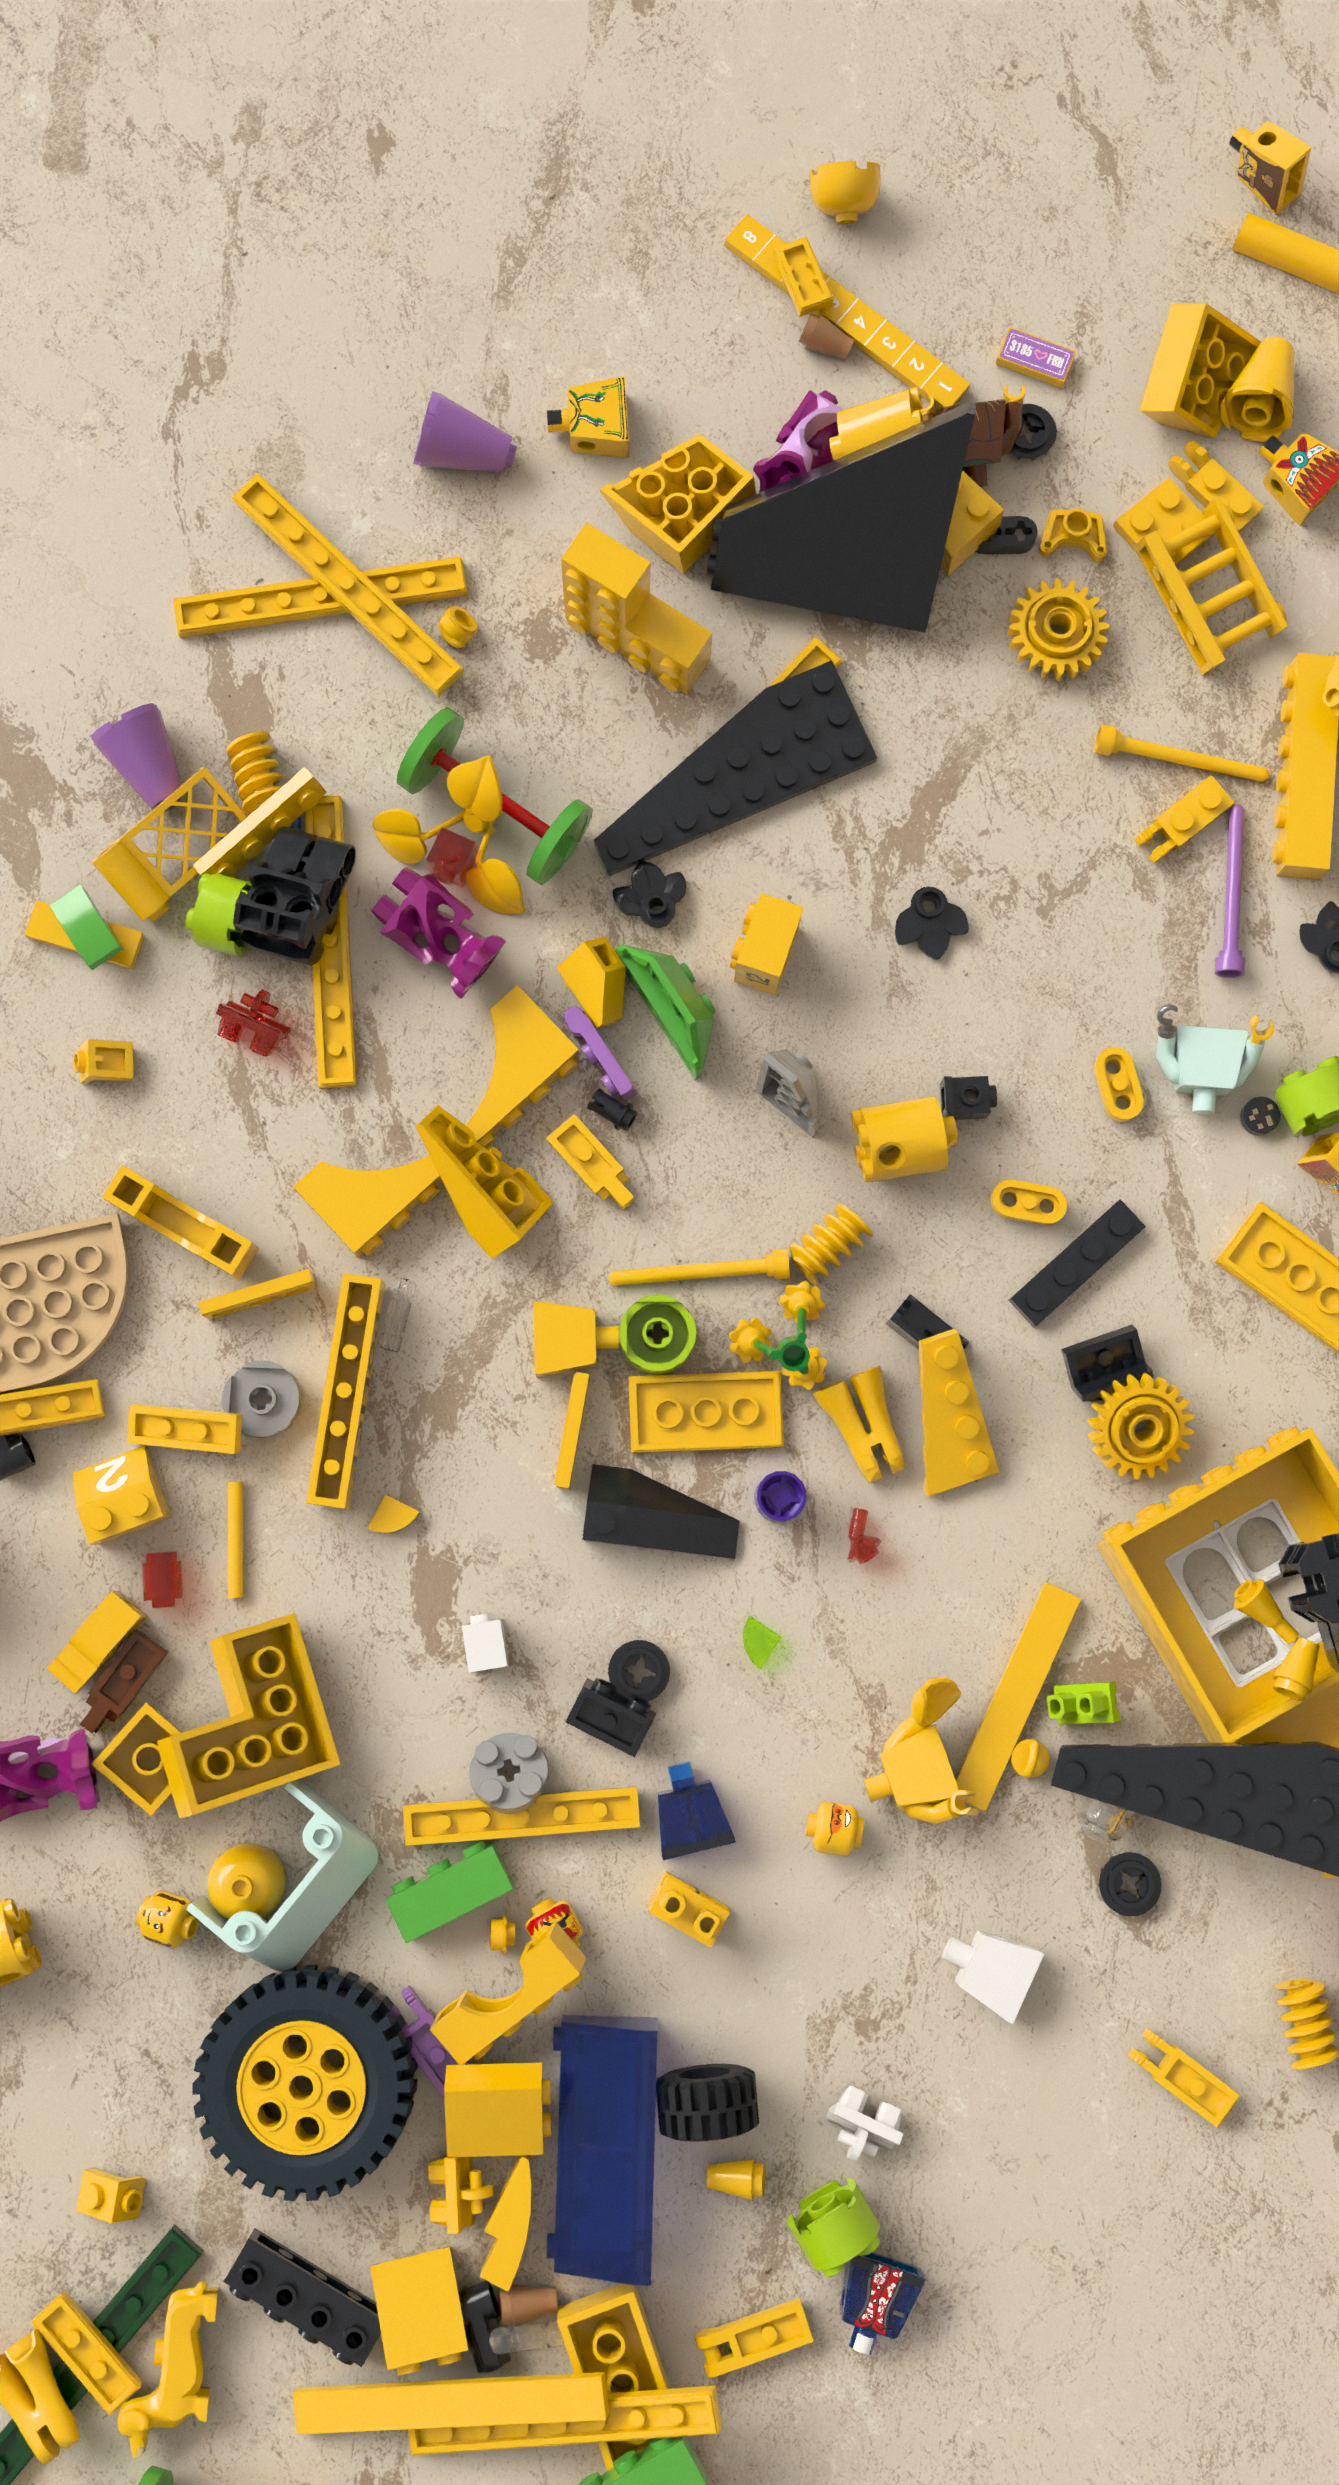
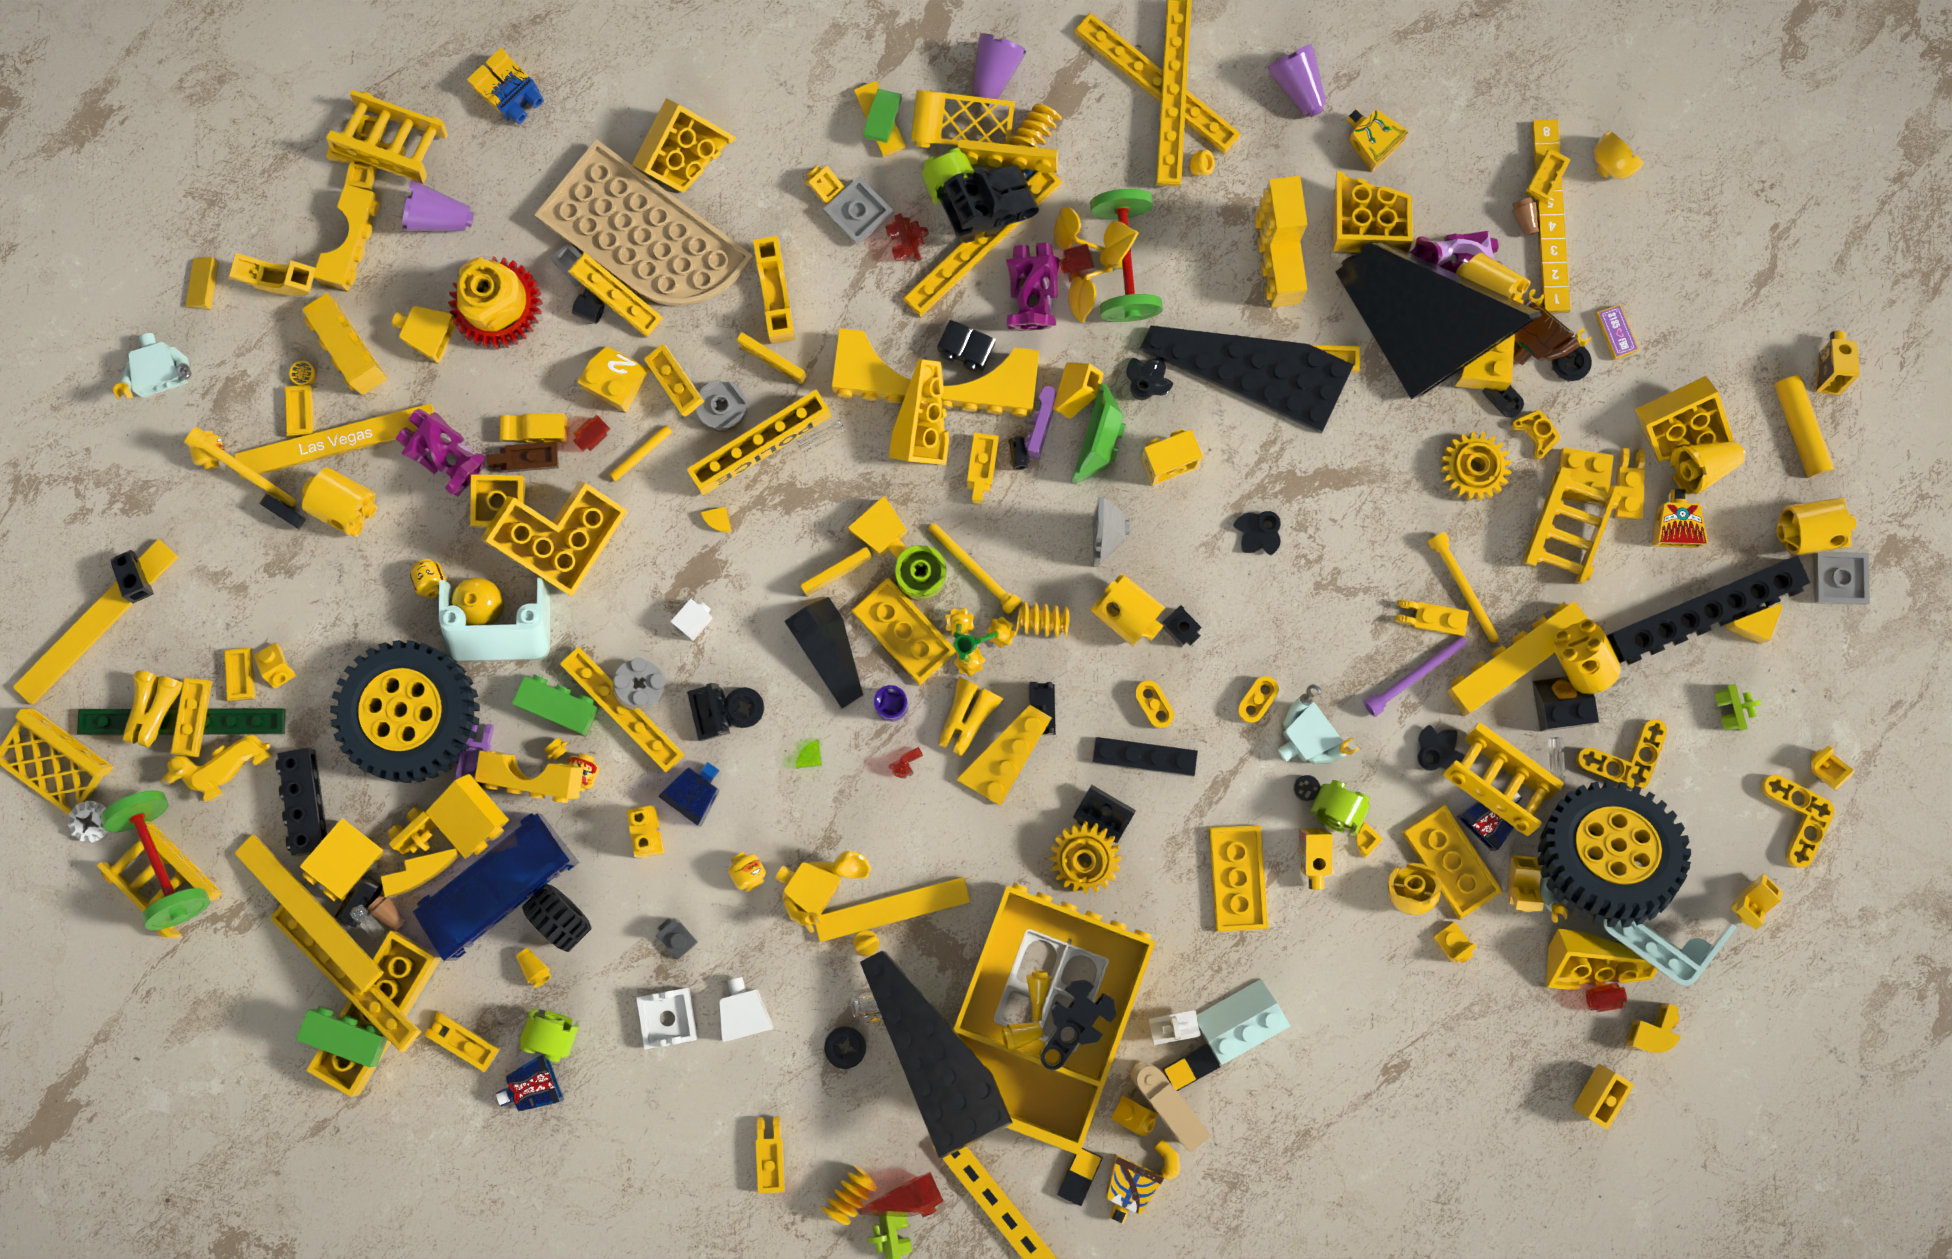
camera: 55 degrees right, 0 degrees up
(84, 2247) = (239, 674): none -> yellow tile
(171, 1049) = (858, 211): none -> light grey plate
(437, 1062) = (965, 346): none -> black brick
(841, 1976) = (676, 937): none -> dark grey bracket
(881, 2129) = (615, 1020): white hips -> none
(931, 2094) = (653, 1031): none -> white piece
(1084, 1703) = (916, 945): lime hips -> none

